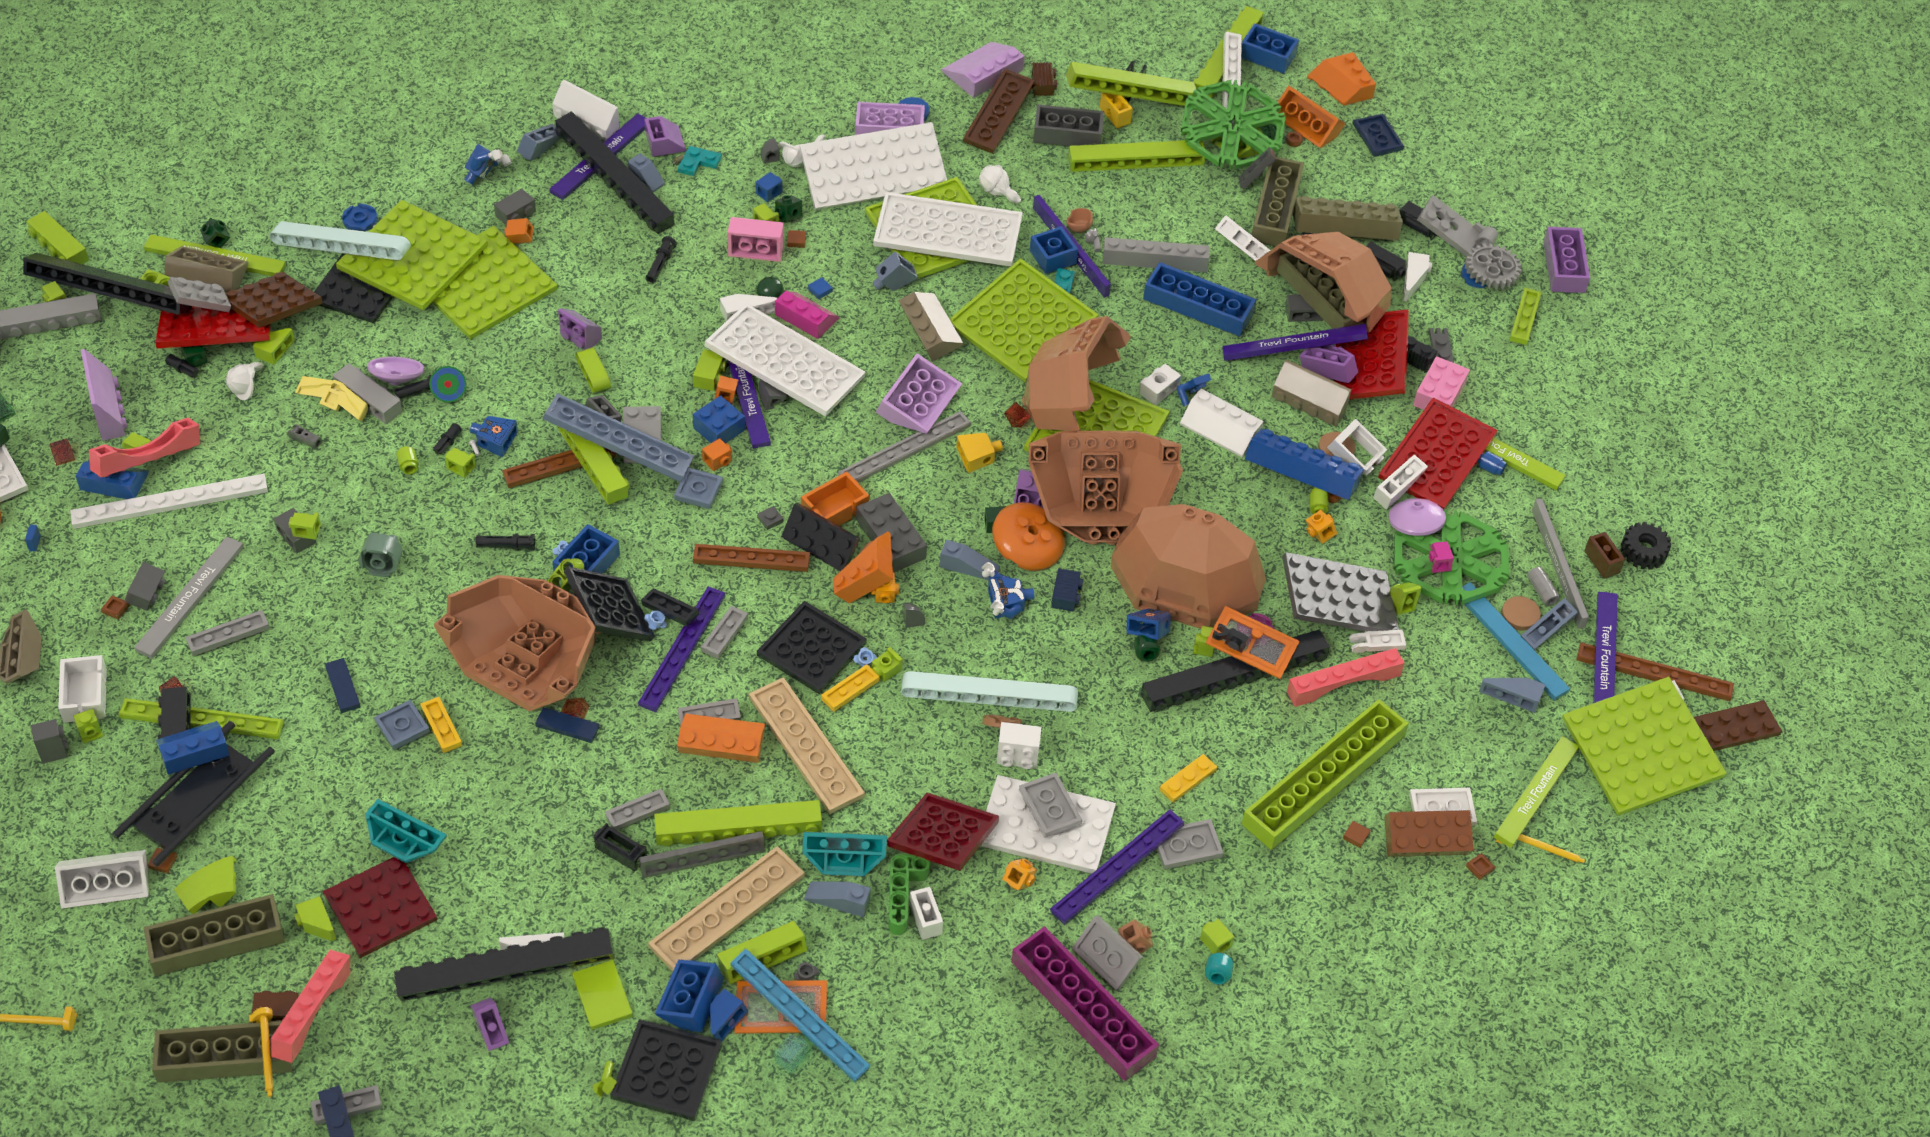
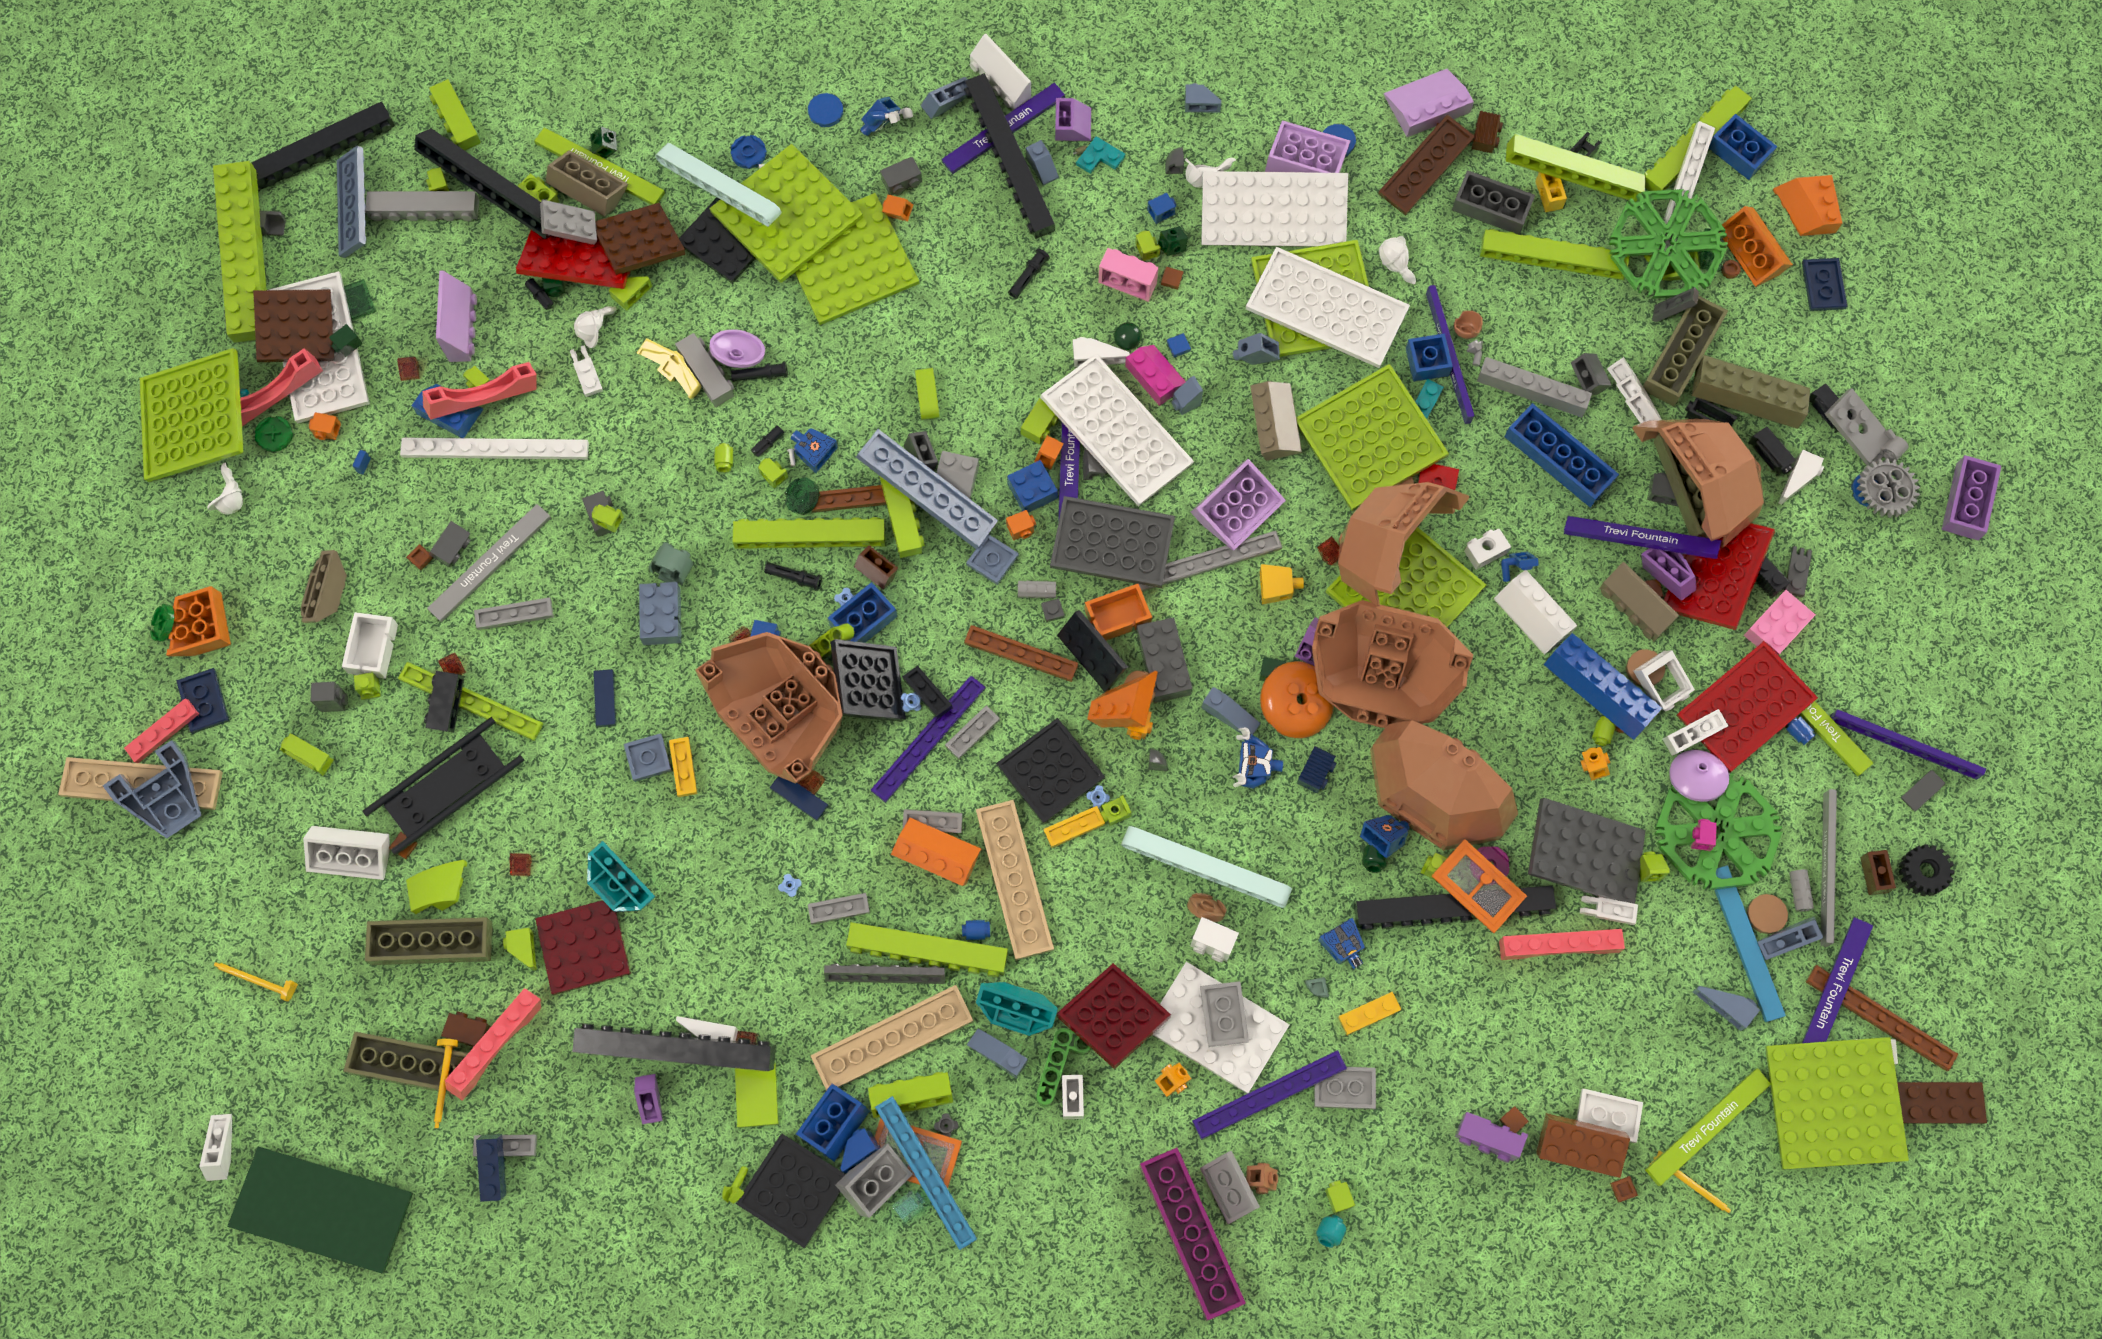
camera: 20 degrees right, 20 degrees up
(36, 800) = (306, 754): none -> lime window
(192, 747) = (450, 739): blue slope -> none
(247, 420) = (586, 373): none -> white hinge
(293, 847) = (520, 864): none -> clear red slope
(305, 436) = (635, 406): flat silver bar -> none
(380, 599) = (658, 613): none -> sand blue piece
(425, 172) = (825, 110): none -> blue tile
(447, 384) = (782, 379): tile -> none
(495, 474) = (802, 495): none -> clear green tile
(511, 503) = (809, 533): none -> lime brick
(578, 329) = (925, 341): medium lavender slope -> none
(581, 806) = (791, 891): none -> light blue plate
(584, 512) = (876, 567): none -> reddish brown brick
(615, 852) = (819, 962): black window -> none
(748, 1035) = (874, 1181): none -> light grey slope
(750, 502) = (1037, 589): none -> light grey axle
(778, 101) = (1201, 99): none -> sand blue slope
(782, 794) = (976, 930): none -> blue brick
(810, 448) = (1112, 541): none -> dark grey plate
(843, 321) = (1187, 396): none -> sand blue slope
(1131, 767) = (1317, 987): none -> sand green tile
(1143, 724) = (1344, 943): none -> torso
(1202, 233) = (1591, 373): none -> dark grey brick
(1233, 637) = (1459, 883): black plate -> none
(1324, 774) = (1504, 1049): lime brick -> none
(1341, 850) = (1490, 1137): none -> medium lavender wedge
(1525, 316) = (1901, 556): lime plate -> none
(1590, 454) = (1908, 745): none -> dark purple tile
(1617, 486) = (1923, 790): none -> dark grey slope

